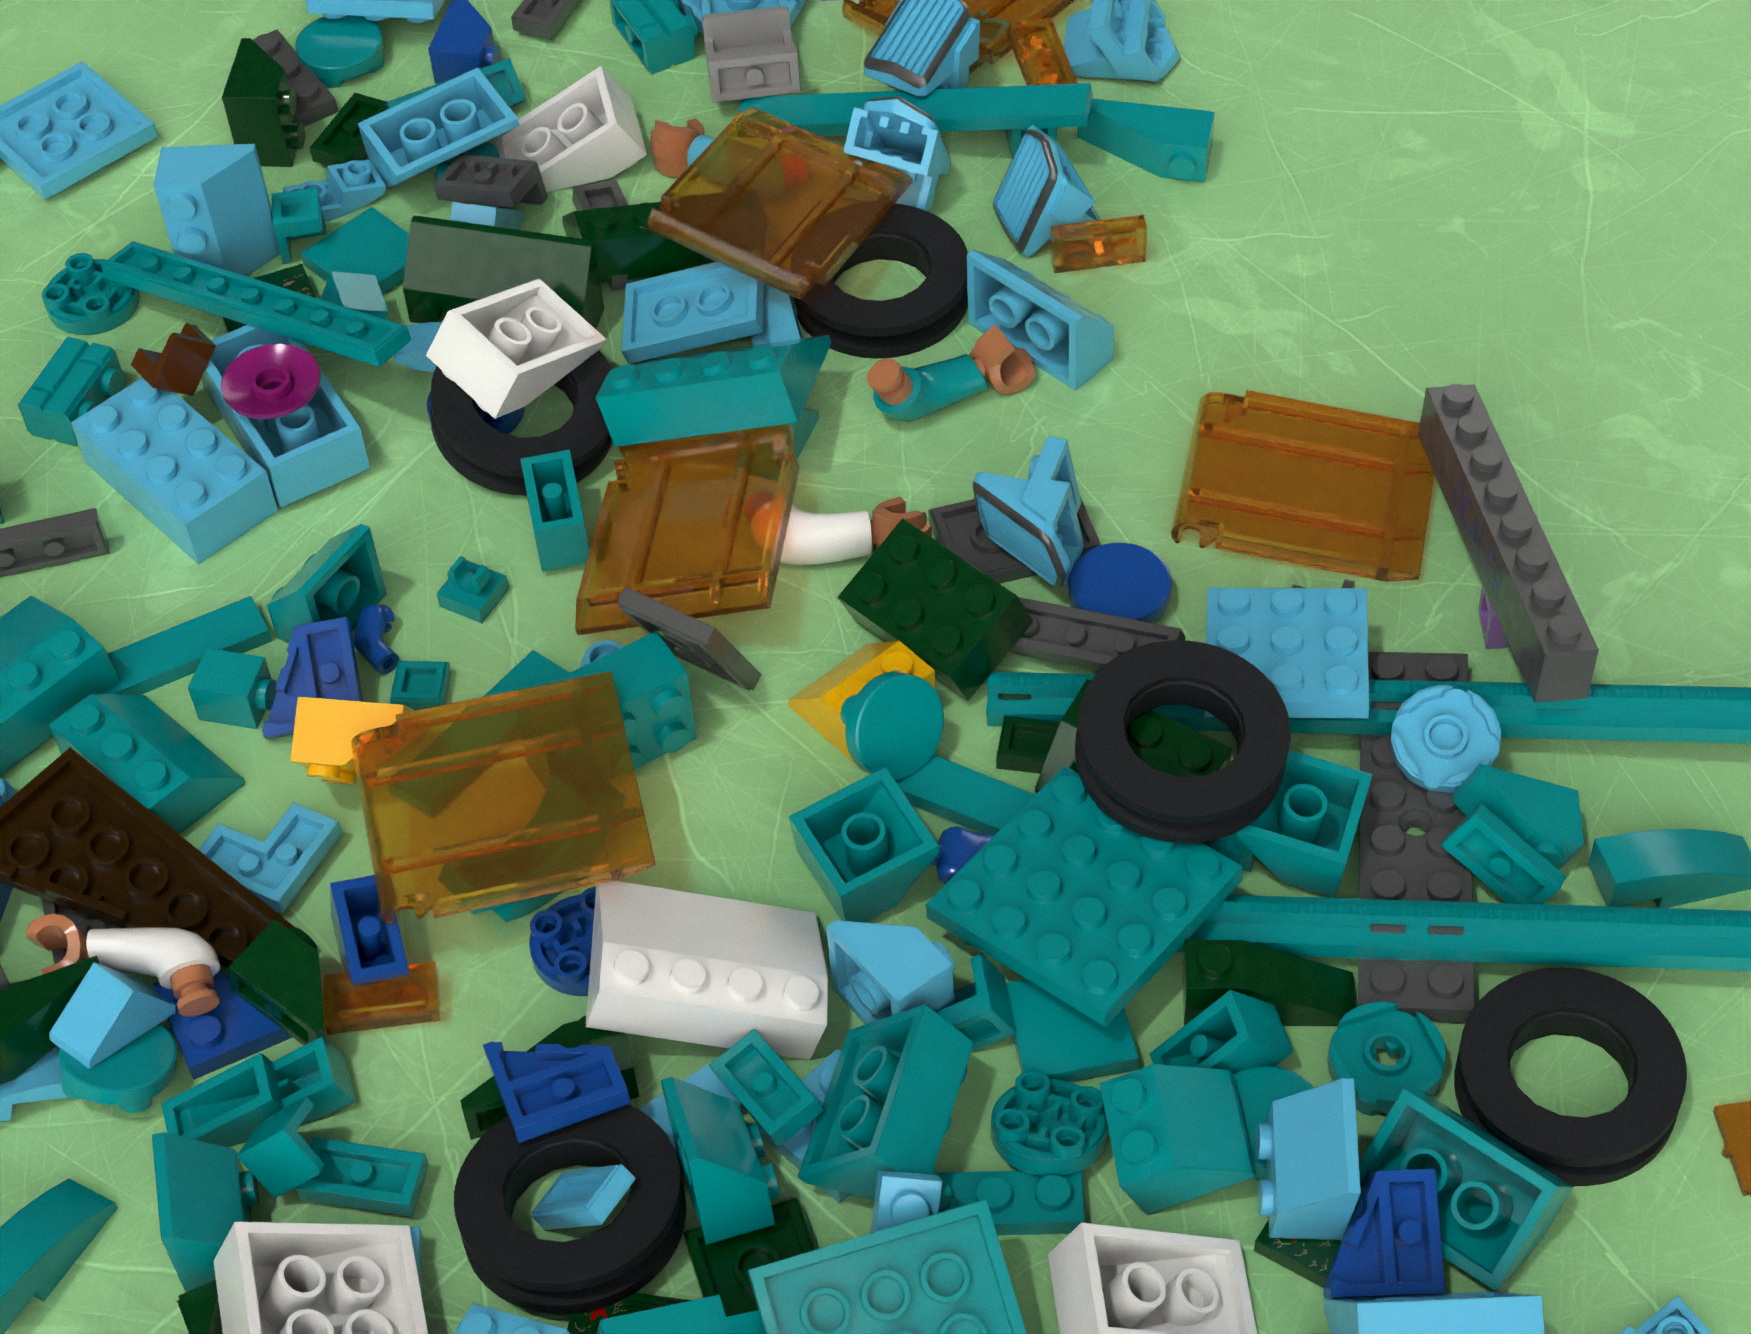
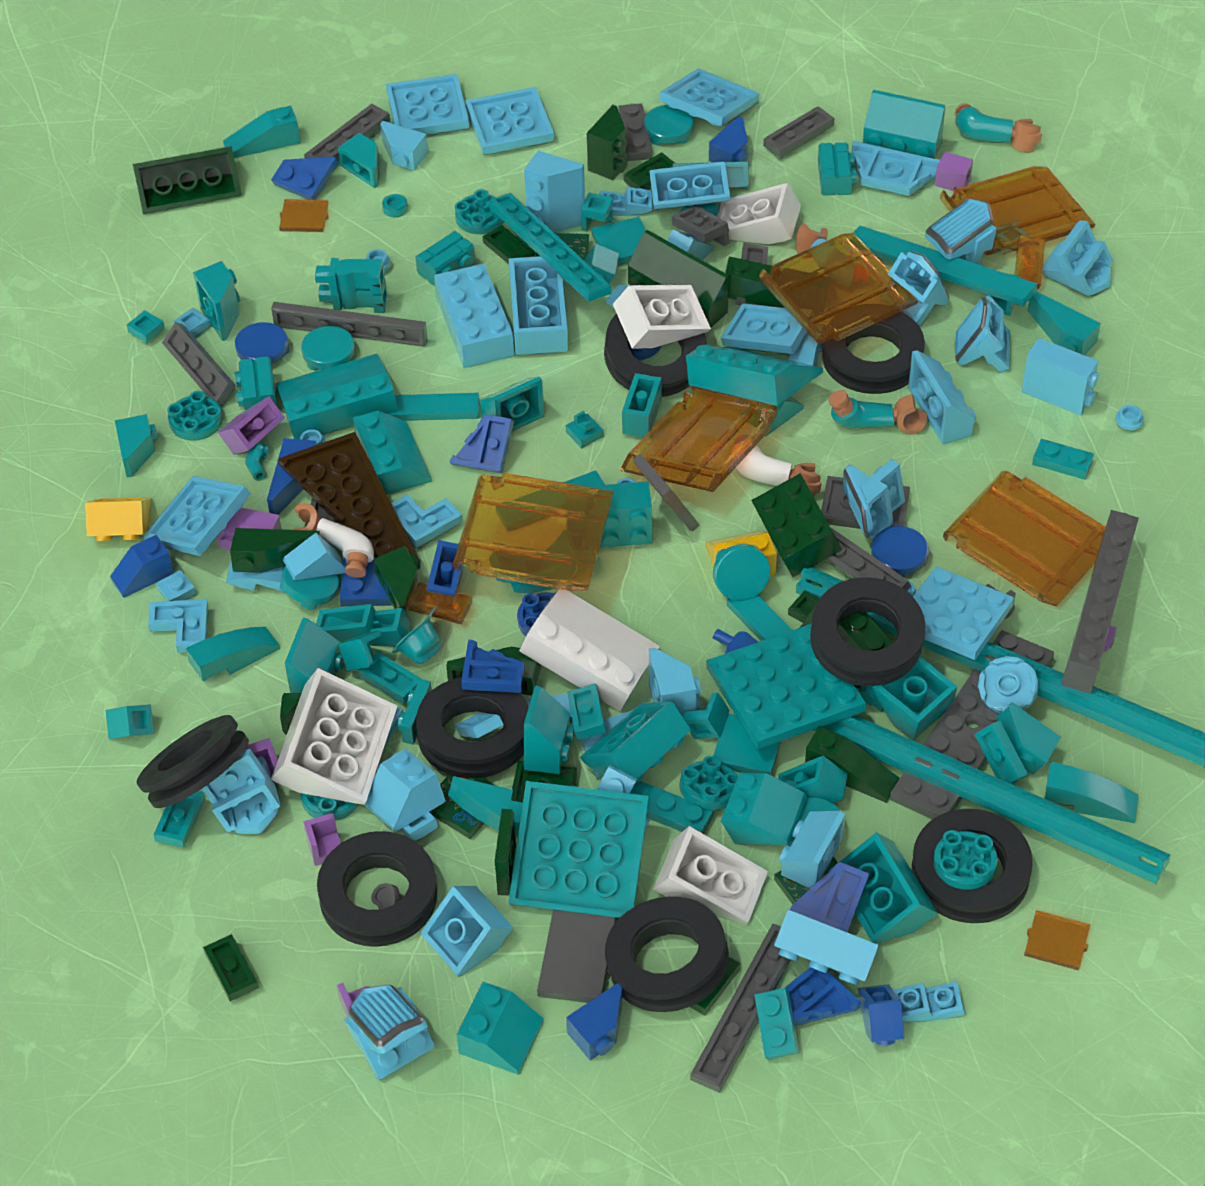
camera: 25 degrees right, 0 degrees up
(151, 326) = (506, 244): none -> dark green tile
(179, 364) = (496, 264): reddish brown panel -> none
(232, 688) = (445, 433): teal brick -> none
(270, 381) = (534, 289): magenta dish -> none
(325, 734) = (470, 467): yellow slope -> none
(369, 634) = (522, 435): blue arm -> none
(390, 1082) = (421, 642): none -> teal piece
(421, 684) = (535, 466): teal tile -> none
(444, 1244) = (407, 719): none -> teal plate
(750, 53) = (875, 203): light grey panel -> none
(864, 846) = (695, 622): teal slope -> none
(1098, 243) = (997, 371): clear orange plate -> none
(1207, 213) = (1060, 376): none -> medium azure brick
(1278, 342) = (1063, 459): none -> teal plate
(1339, 240) = (1129, 417): none -> medium azure plate
(1382, 1026) = (889, 805): teal plate -> none
(1568, 1071) = (965, 859): none -> teal tile

